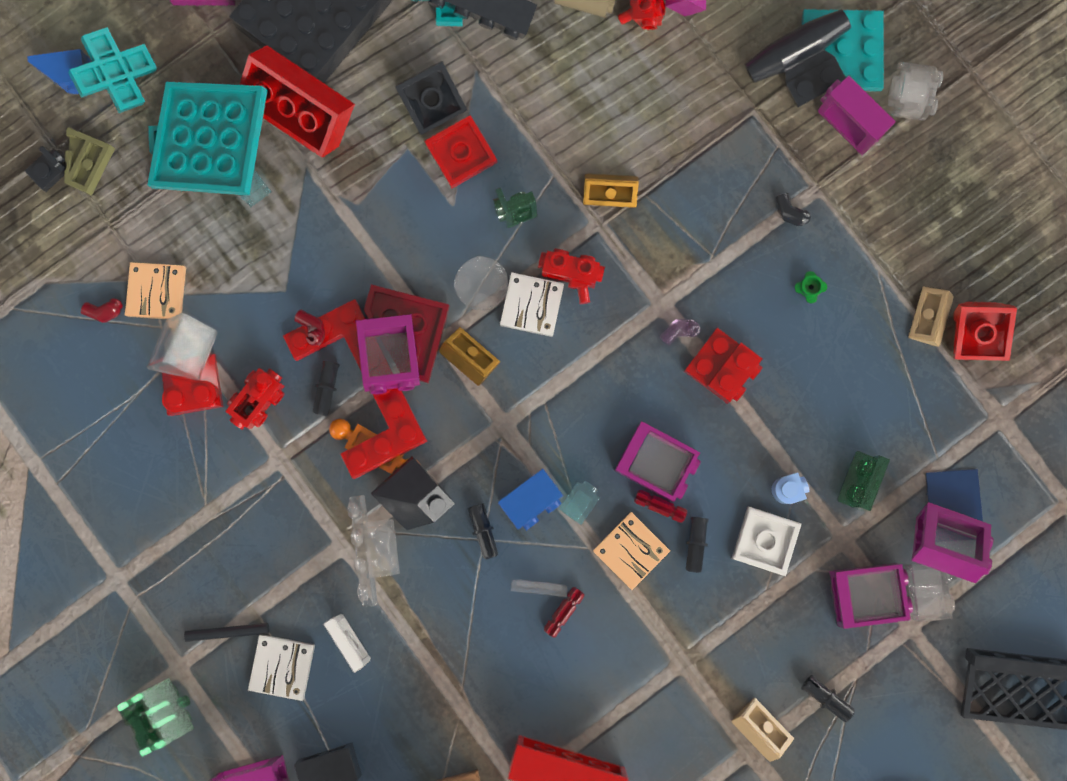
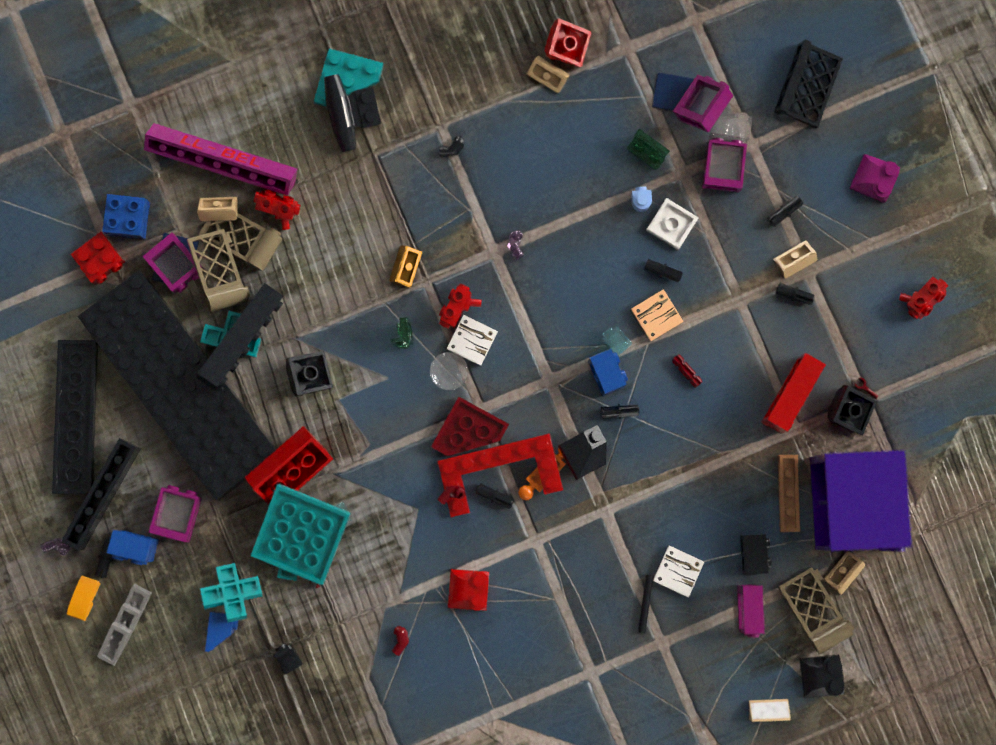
camera: 80 degrees left, 0 degrees up
(85, 161) = (289, 628): olive wing -> none
(155, 290) = (395, 600): light nougat tile -> none
(156, 716) = (692, 661): clear green brick -> none
(182, 347) = (441, 588): clear slope -> none
(260, 391) = (485, 539): red brick -> none
(347, 642) = (672, 519): white tile -> none
(374, 550) = (613, 489): clear bracket -> none
(387, 354) = (485, 444): window -> none
(461, 151) = (352, 362): red plate -> none
(469, 356) = (497, 392): pearl gold slope -> none
(539, 587) = (667, 381): clear tile -> none
(660, 463) = (602, 282): window -> none
(660, 506) = (631, 288): dark red axle -> none
(712, 741) = (795, 294): none -> black axle
(724, 366) = (548, 220): red plate -> none
(817, 283) = (503, 148): green plate -> none
(855, 114) = (399, 87): magenta window -> none
(914, 91) = (393, 43): clear brick -> none

